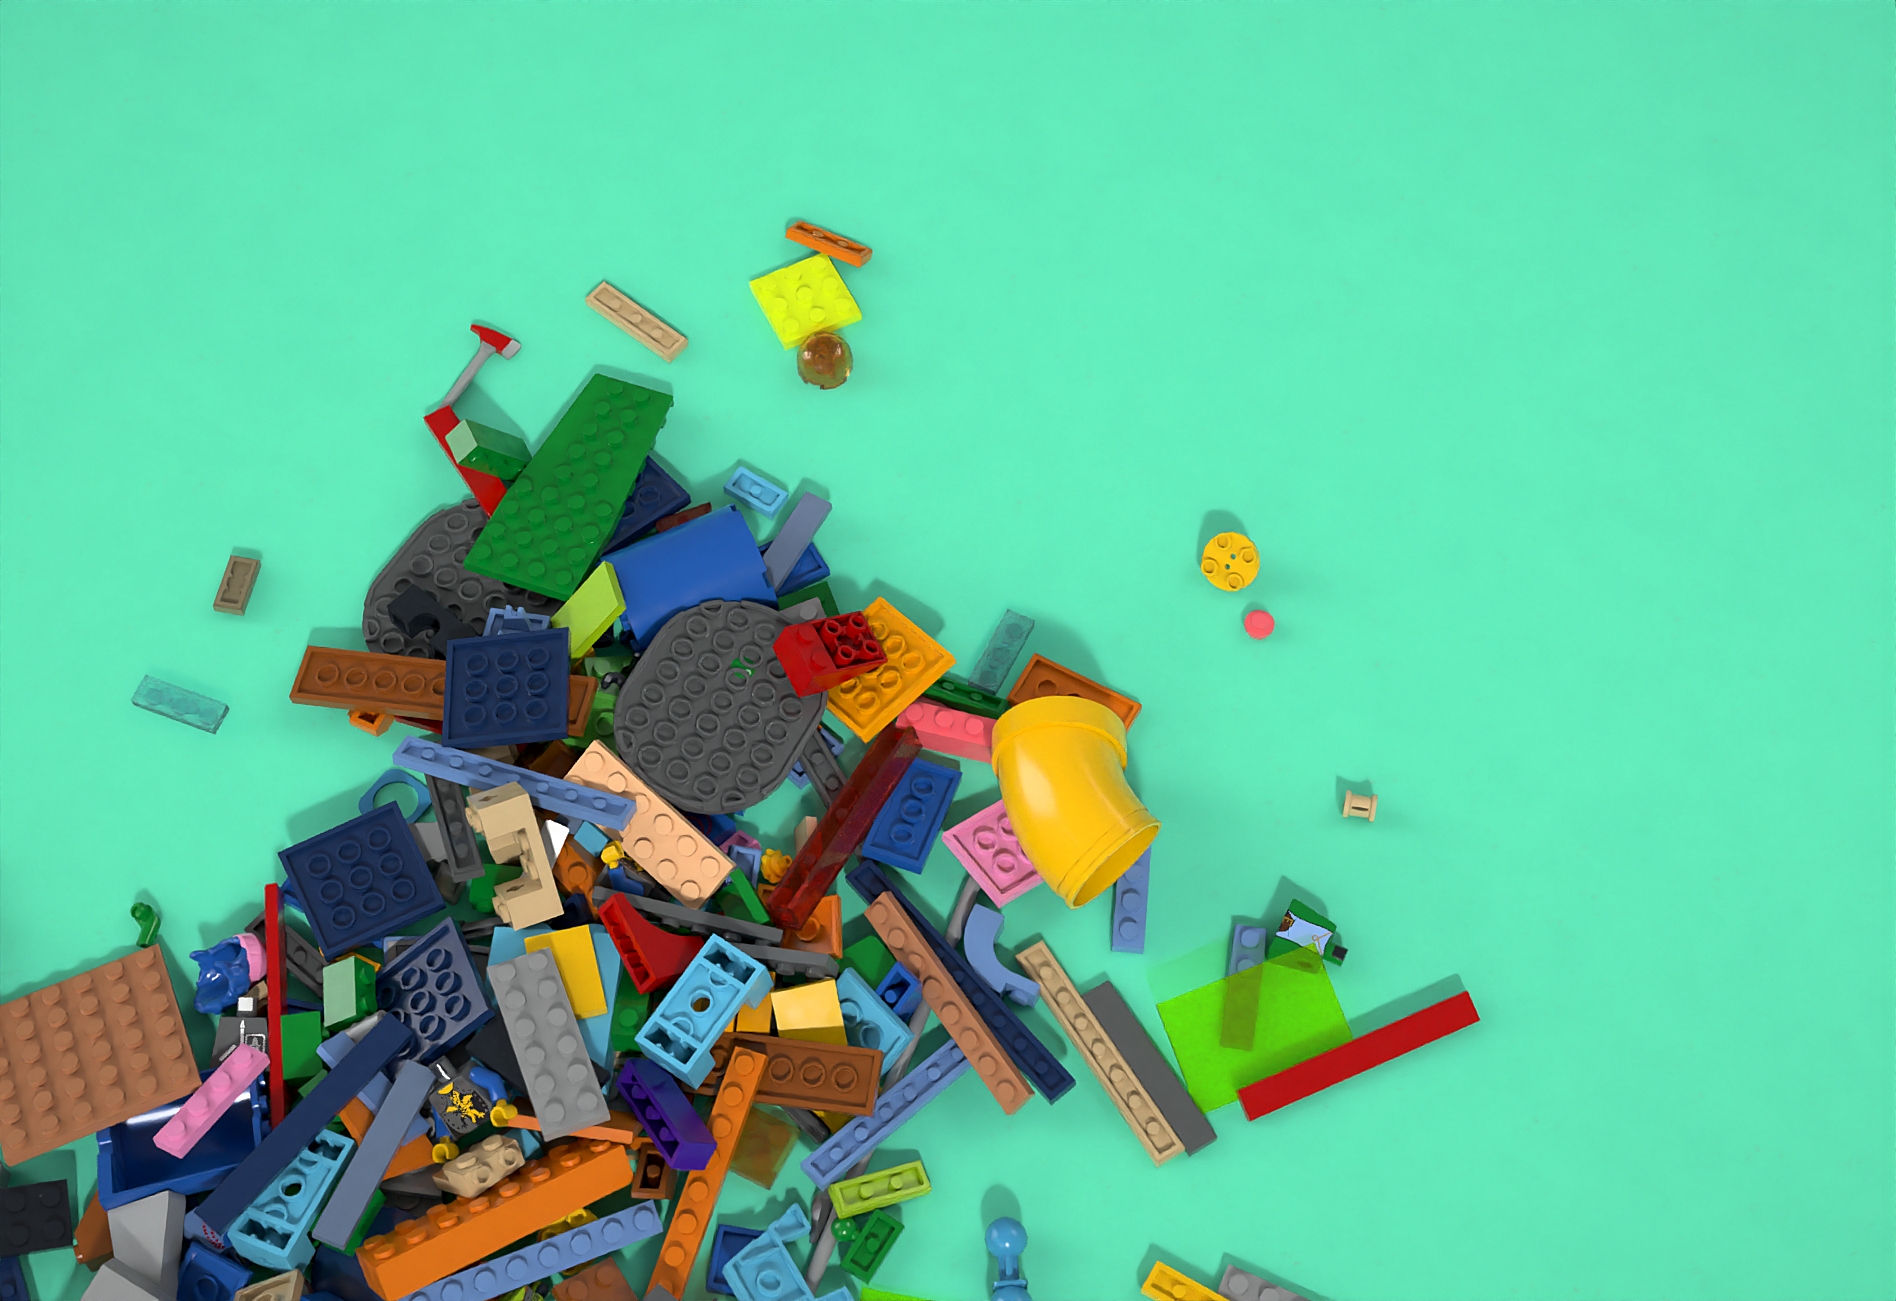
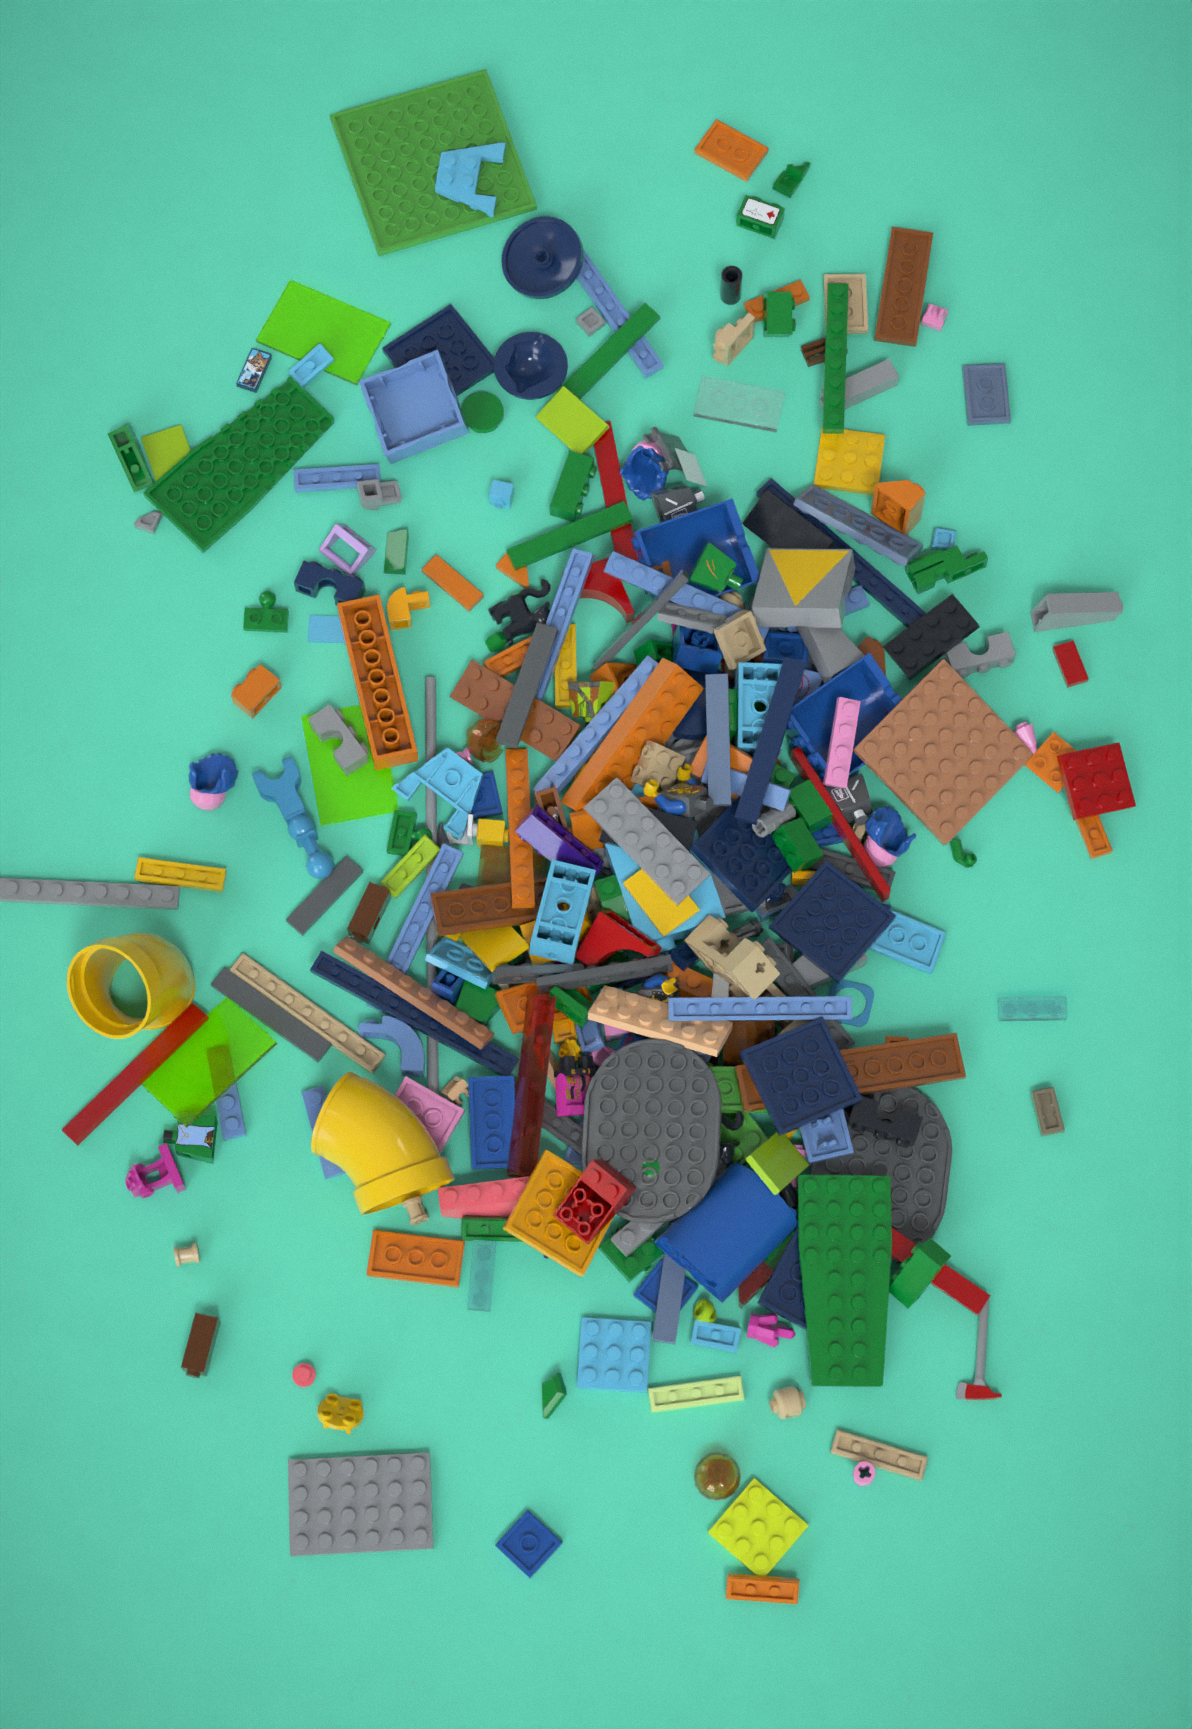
camera: 160 degrees right, 10 degrees up
(268, 831) = (910, 943): none -> medium azure tile
(666, 301) = (862, 1466): none -> bright pink bush
(693, 476) = (767, 1330): none -> dark pink rock
(709, 398) = (787, 1402): none -> tan head
(748, 1193) = (491, 832): none -> yellow brick
(758, 520) = (704, 1311): none -> lime tile
(777, 1206) = (470, 832): none -> white bracket
(789, 807) = (573, 1084): none -> hips
(807, 448) = (696, 1394): none -> yellowish green tile
(882, 519) = (614, 1355): none -> medium azure plate
(943, 876) = (454, 1088): none -> light nougat tile
(963, 1148) = (369, 913): none -> reddish brown brick
(972, 500) = (552, 1394): none -> green piece
(1015, 1201) = (324, 896): none -> dark grey tile
(1064, 372) = (528, 1544): none -> blue tile
(1241, 474) = (360, 1504): none -> light grey plate
(1327, 1134) = (162, 968): none -> yellow cylinder
(1351, 908) = (136, 1177): none -> dark pink tile
(1375, 697) = (200, 1345): none -> reddish brown brick

